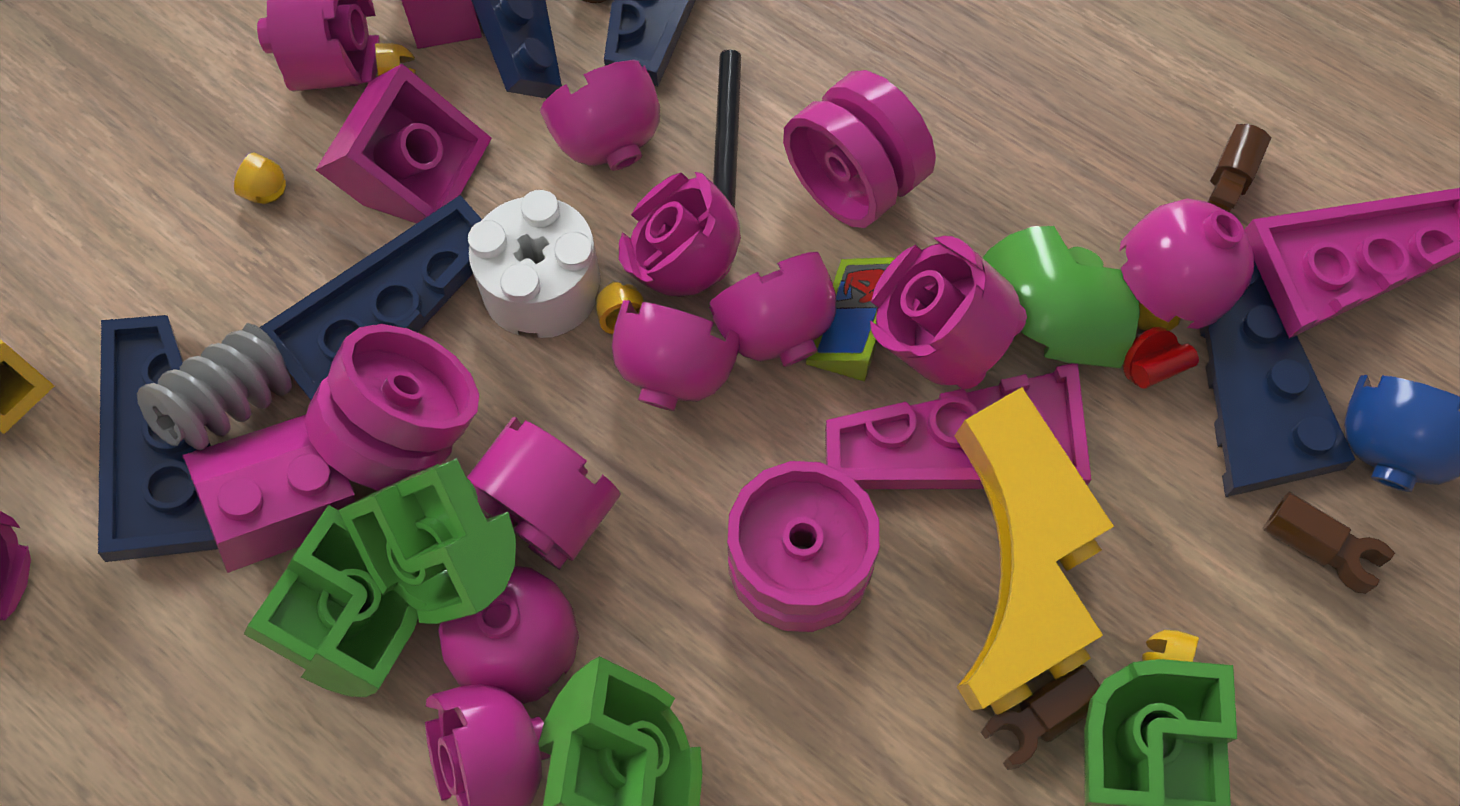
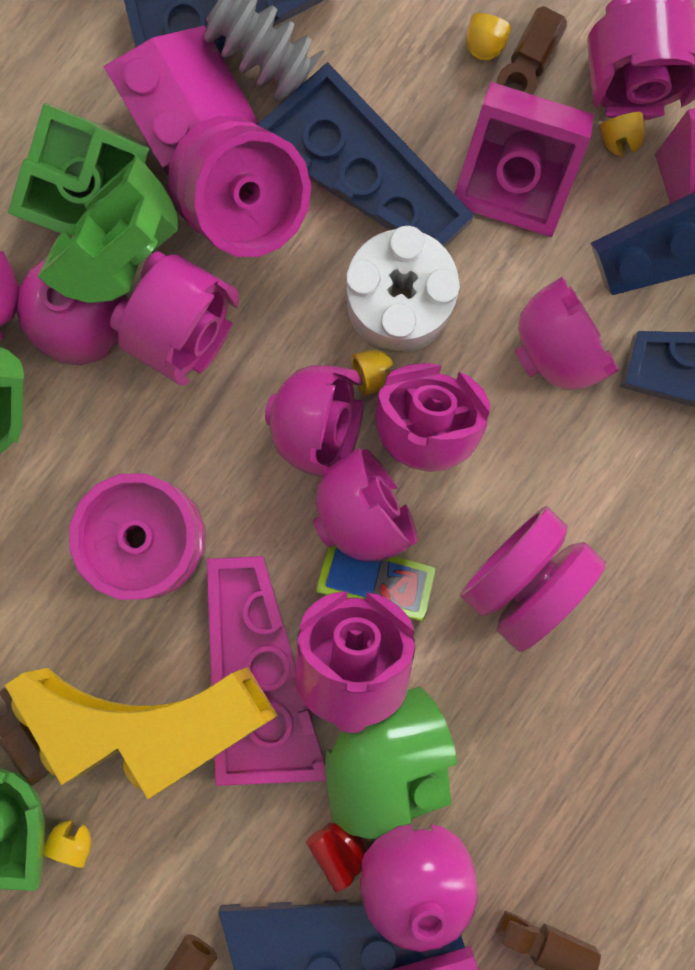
camera: 85 degrees right, 20 degrees up
(286, 139) = (534, 49): none -> reddish brown bar
(727, 124) = (565, 456): black bar -> none

